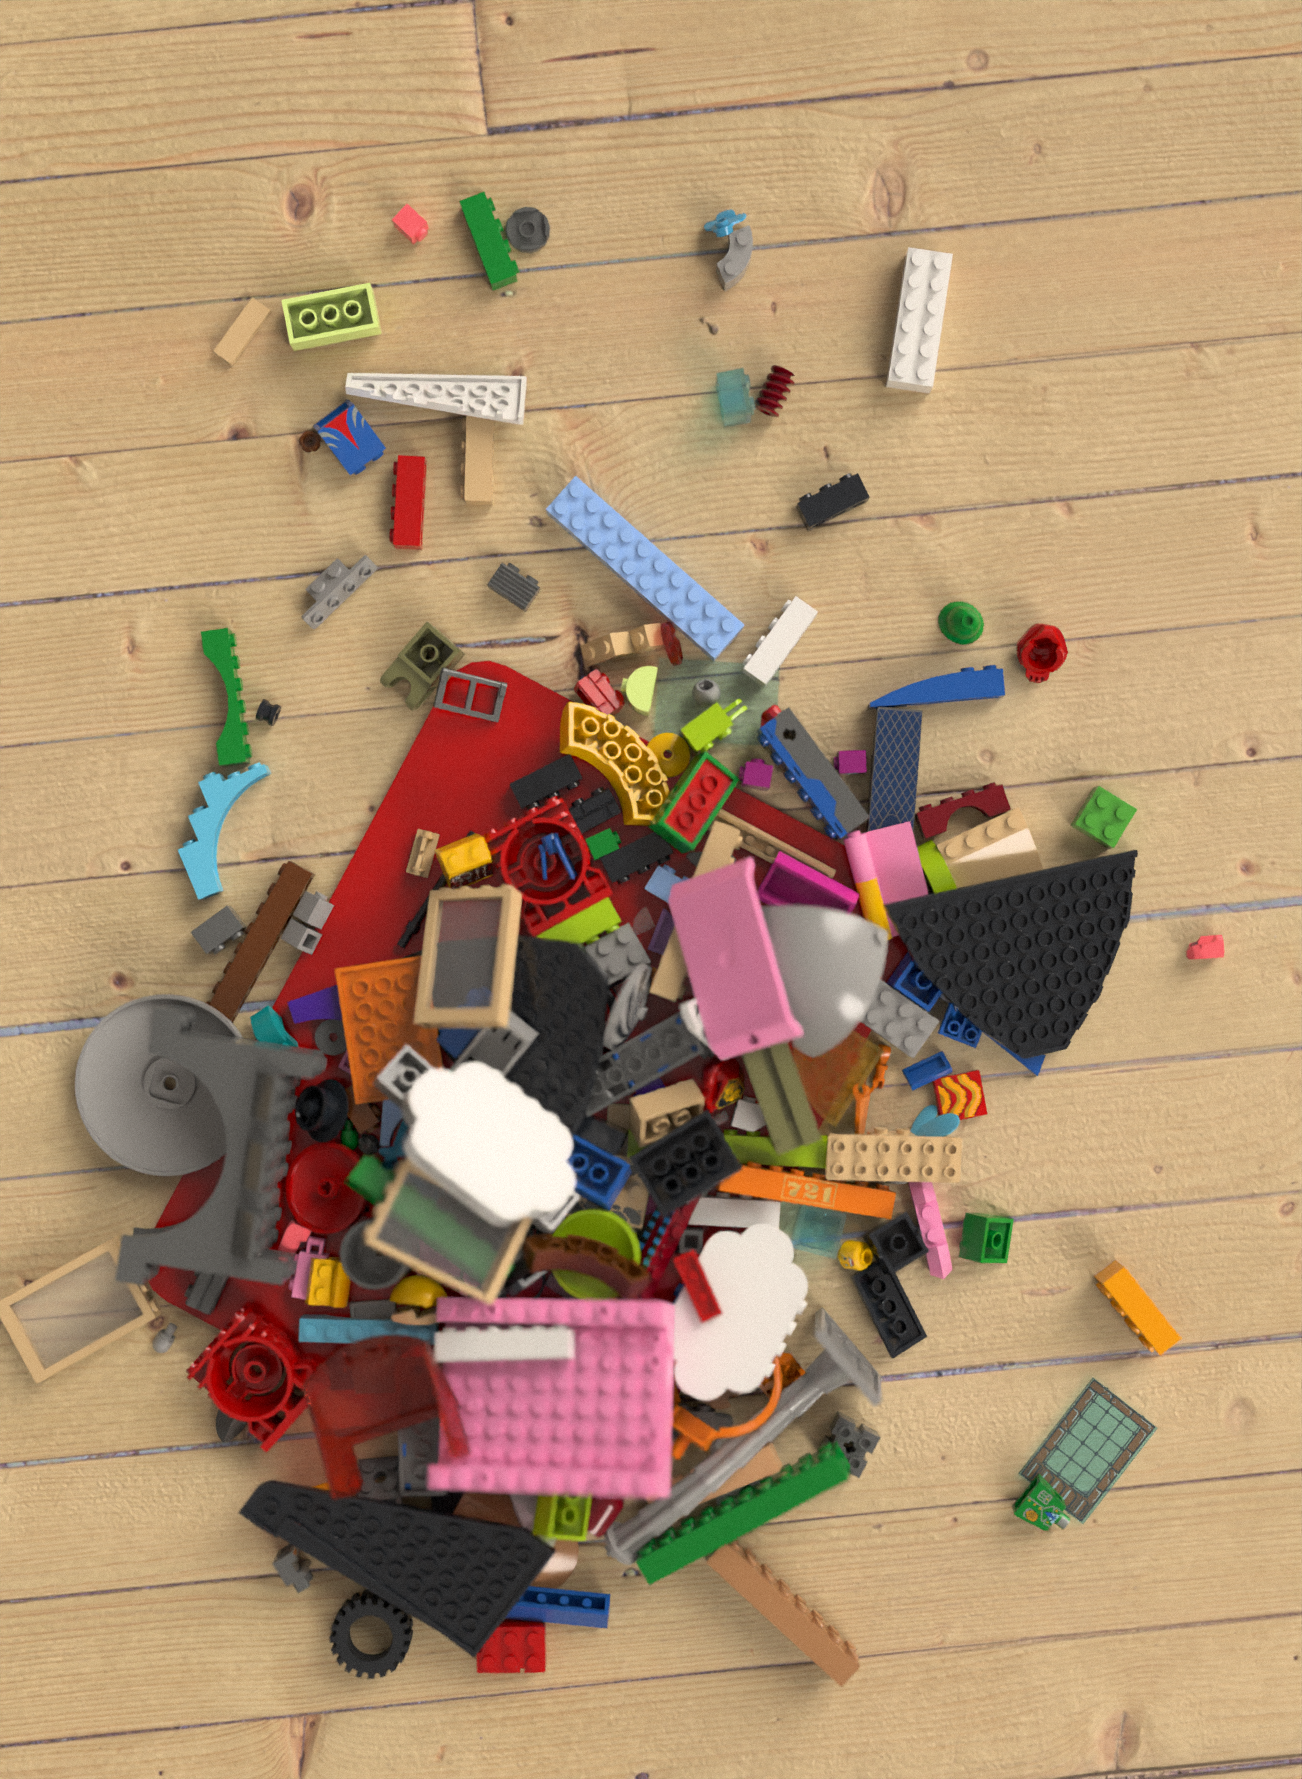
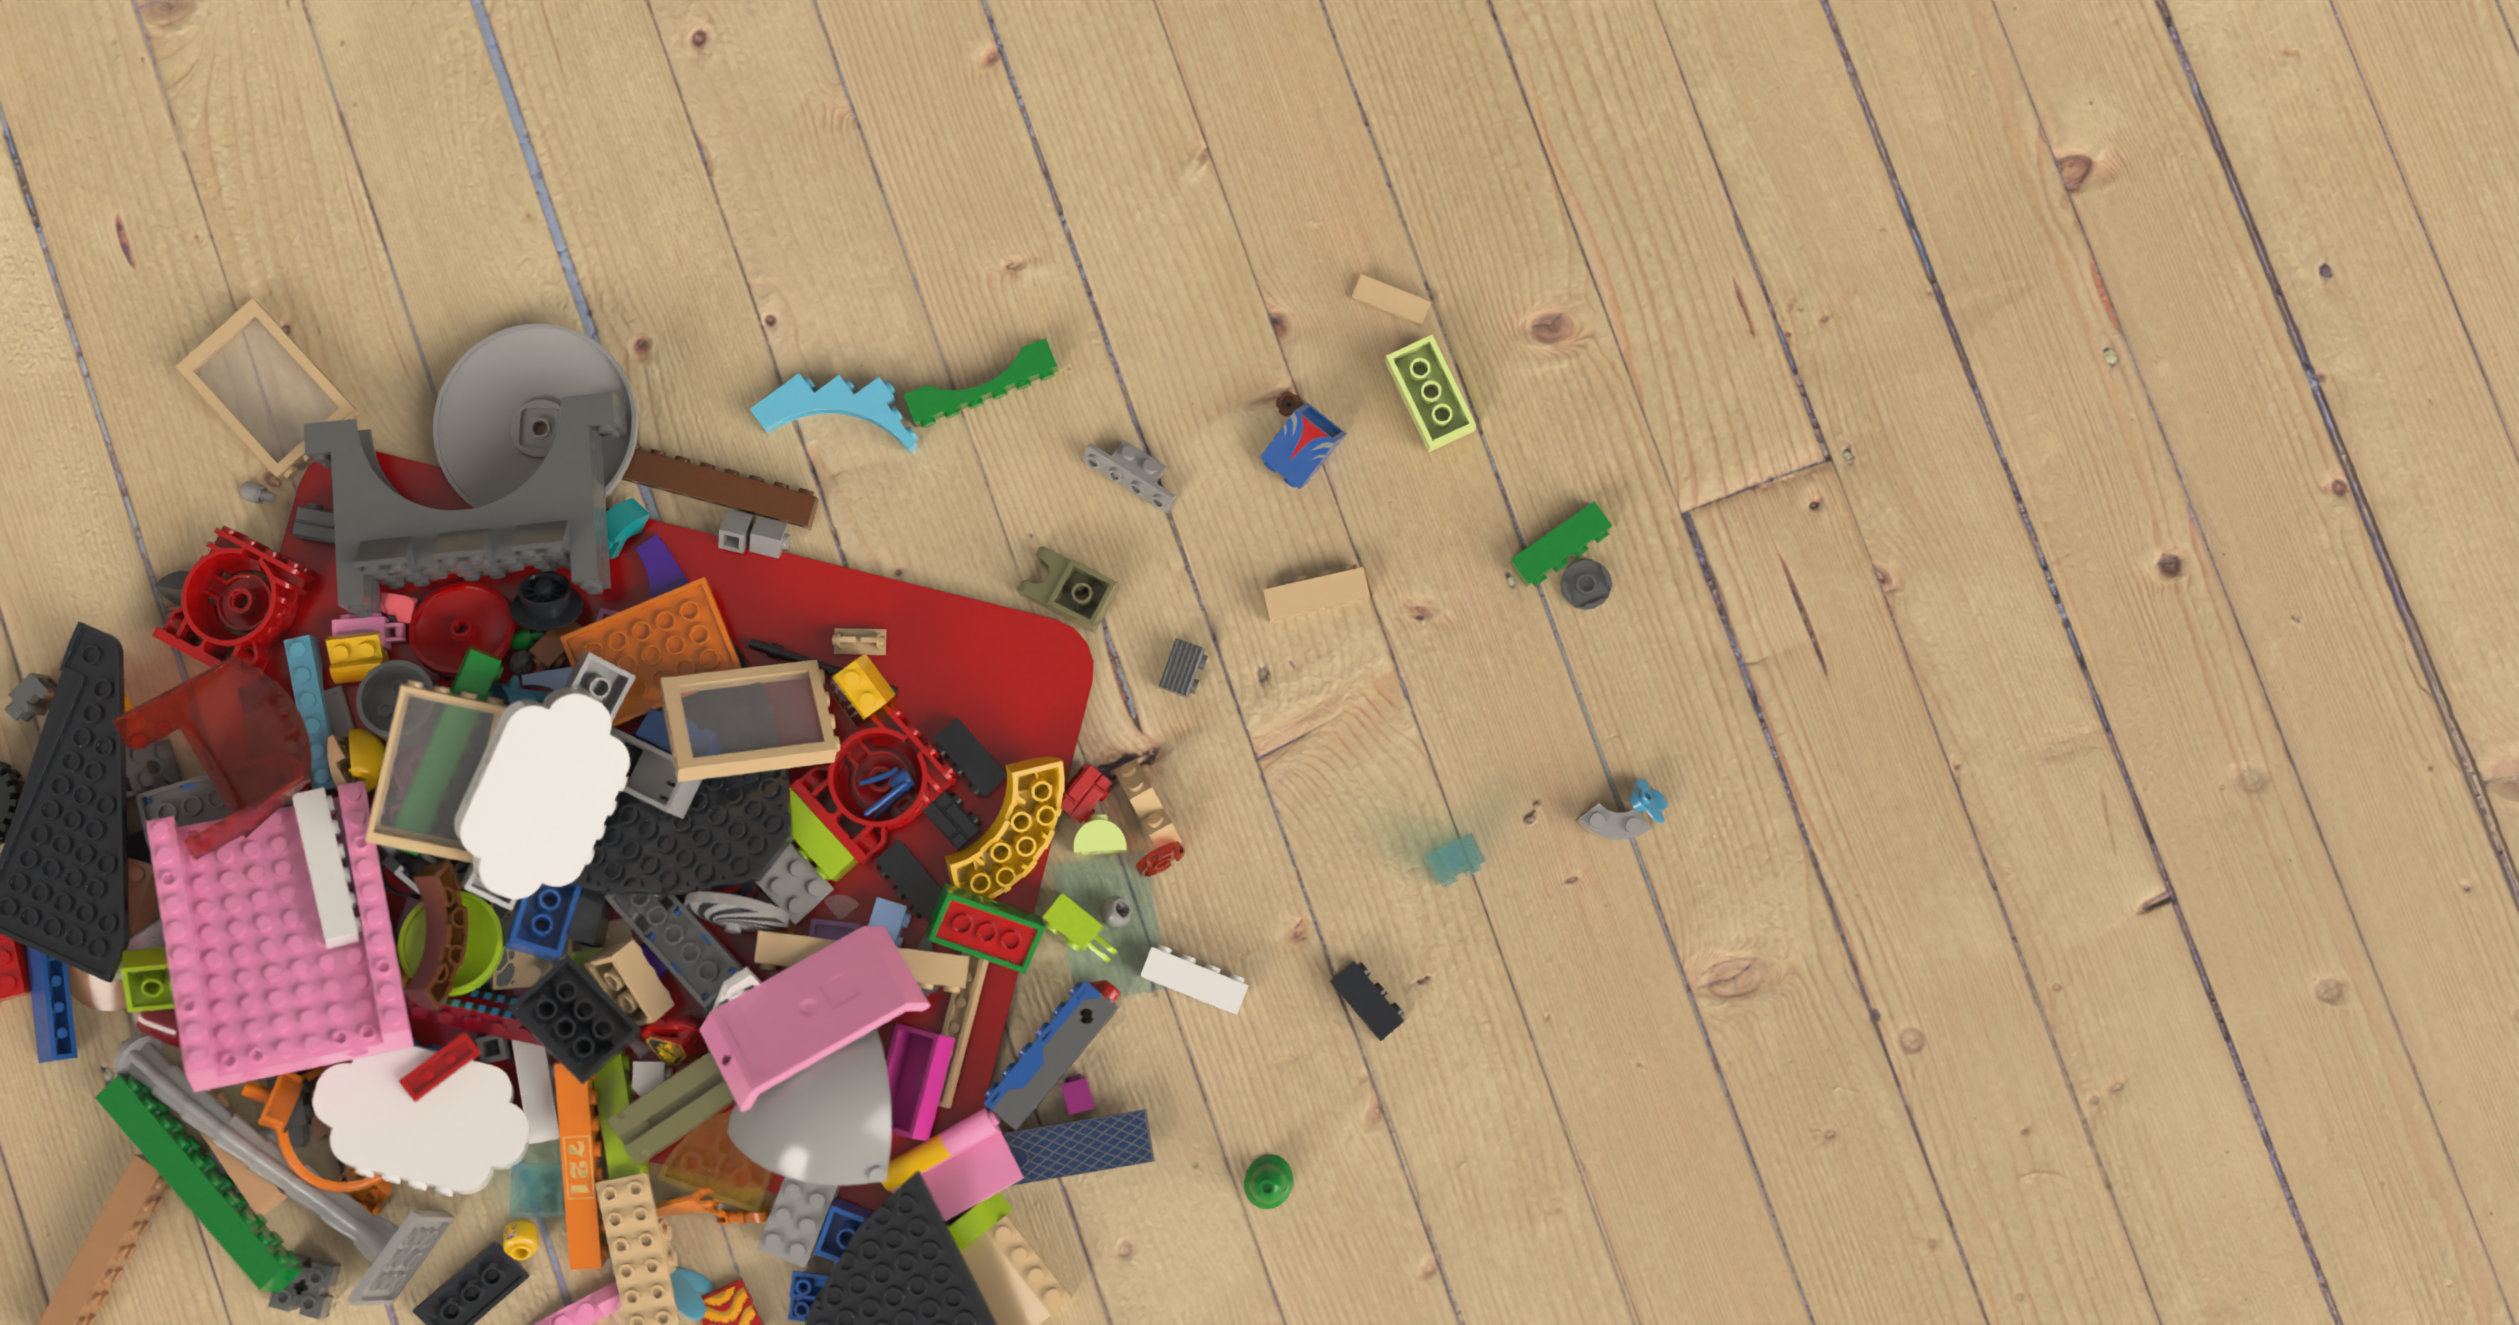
camera: 70 degrees right, 5 degrees down
(219, 930) = (722, 439): dark grey brick -> none
(268, 712) = (976, 433): black wheel -> none
(323, 1040) = (624, 585): dark grey piece -> none
(409, 502) = (1247, 529): red brick -> none
(410, 224) = (1556, 454): coral brick -> none
(445, 672) = (1029, 650): dark grey window -> none
(471, 395) = (1382, 569): white wing -> none
(603, 843) = (917, 839): green brick -> none
(644, 568) = (1238, 809): light blue brick -> none
(680, 753) = (1047, 894): yellow dish -> none
(755, 774) = (1035, 990): magenta brick -> none
(774, 390) = (1474, 904): dark red piece -> none
(895, 1243) = (544, 1282): black brick -> none
(919, 320) = (1596, 1047): white brick -> none
(927, 1070) = (749, 1270): blue tile -> none
(935, 819) = (1072, 1264): dark red arch -> none
(947, 688) = (1189, 1186): blue slope -> none
(1041, 651) = (1255, 1281): red helmet -> none

